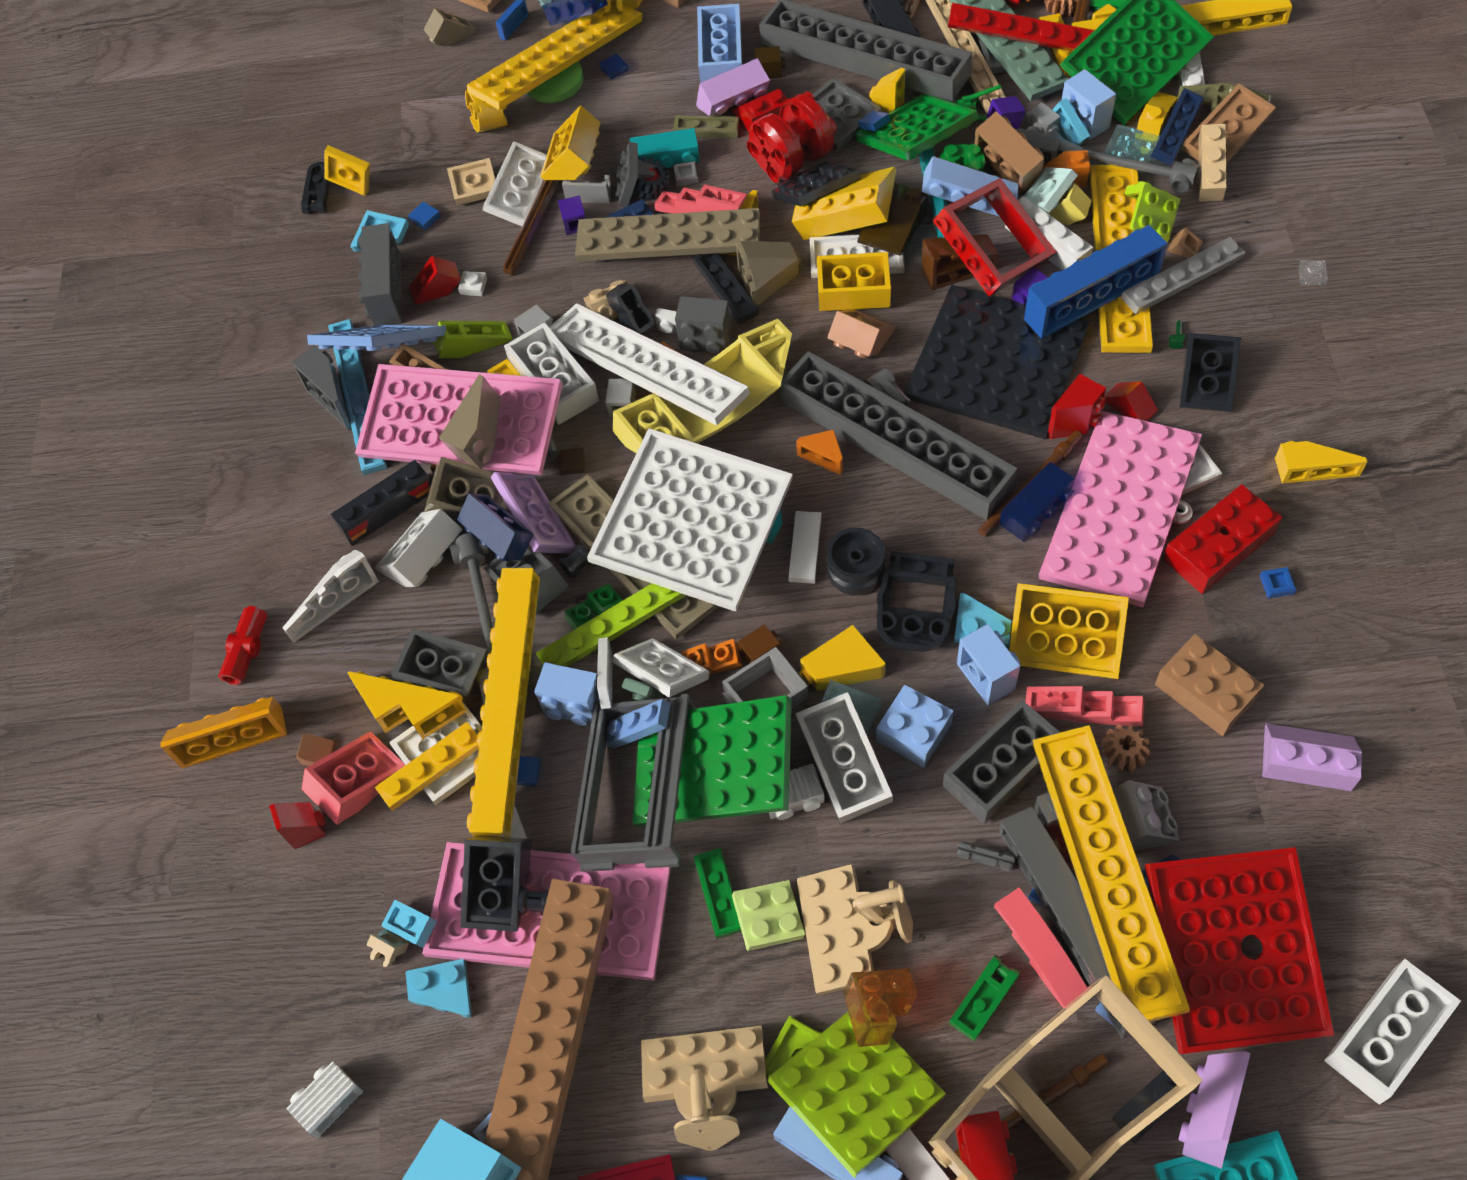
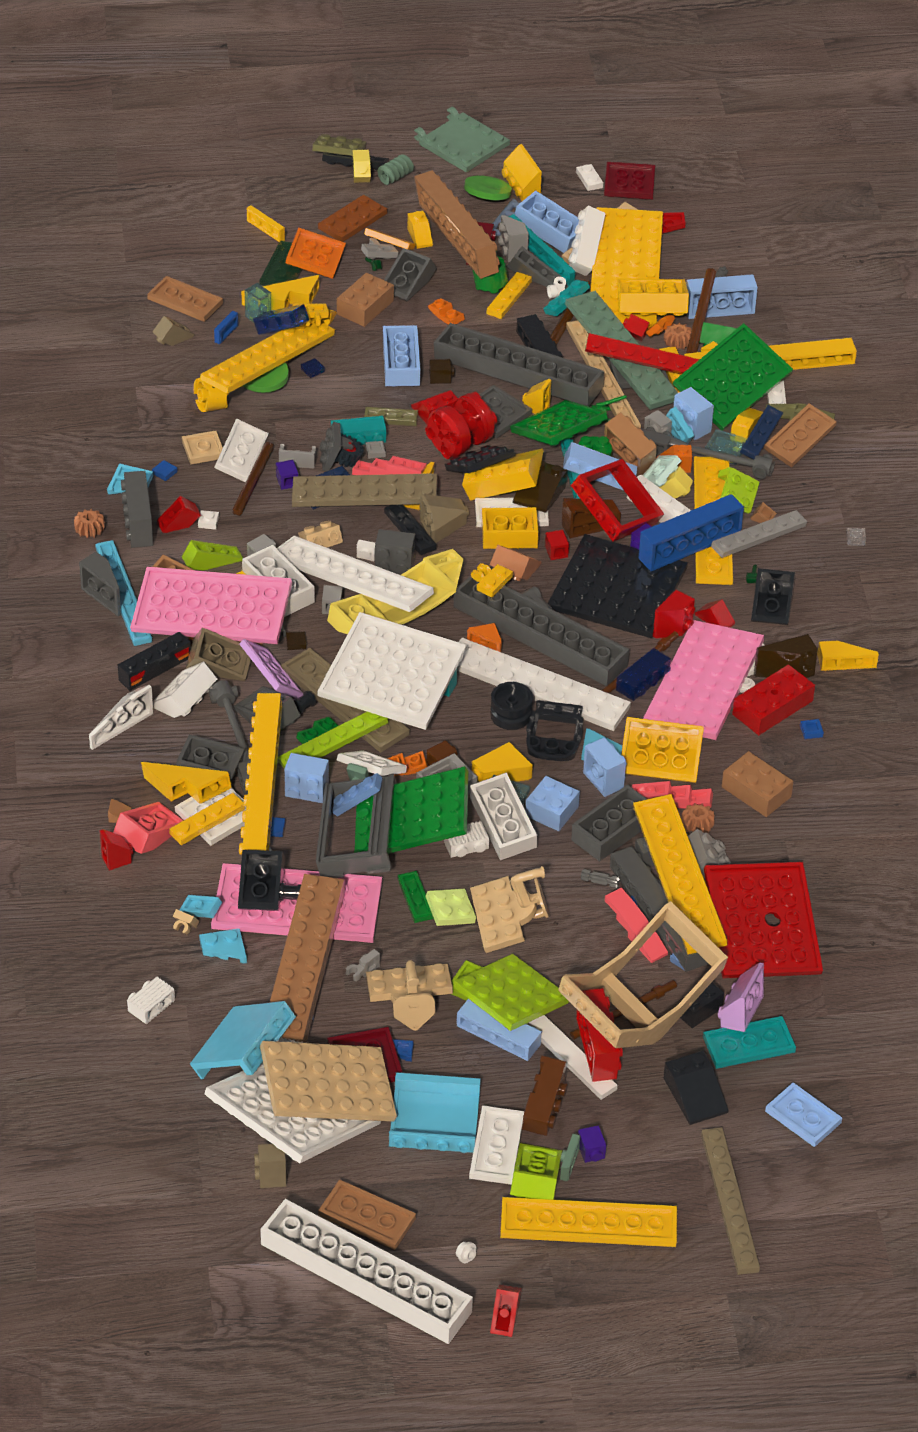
camera: 10 degrees left, 15 degrees down
(225, 732) = (53, 798): light orange slope -> none
(242, 645) = (56, 748): red piece -> none
(315, 188) = (73, 446): black plate -> none
(322, 296) = (89, 523): none -> nougat gear
(346, 170) = (102, 433): yellow tile -> none
(376, 336) = (143, 548): medium blue plate -> none
(474, 425) = (227, 607): dark tan slope -> none
(495, 527) = (244, 674): brick -> none
(572, 147) = (284, 424): yellow slope -> none
(604, 673) = (333, 767): white tile -> none
(628, 304) = (337, 537): black brick -> none
(643, 1026) = (366, 964): none -> light grey plate
(732, 88) = (412, 388): lavender slope -> none
(805, 547) = (473, 699): white tile -> none
(831, 367) = (491, 580): none -> yellow hinge
(874, 121) = (526, 417): blue tile -> none
(875, 1000) = (526, 945): clear orange brick -> none
(898, 520) = (545, 685): none -> white plate
(915, 302) = (556, 544): none -> red brick
(983, 998) = (596, 951): green plate -> none
(1008, 107) = (633, 412): dark purple brick -> none
(1212, 162) = (785, 458): tan brick -> none
(1254, 466) = (797, 652): none -> dark brown slope
(1311, 757) = (822, 828): lavender slope -> none
(1392, 1031) = (858, 965): white brick -> none

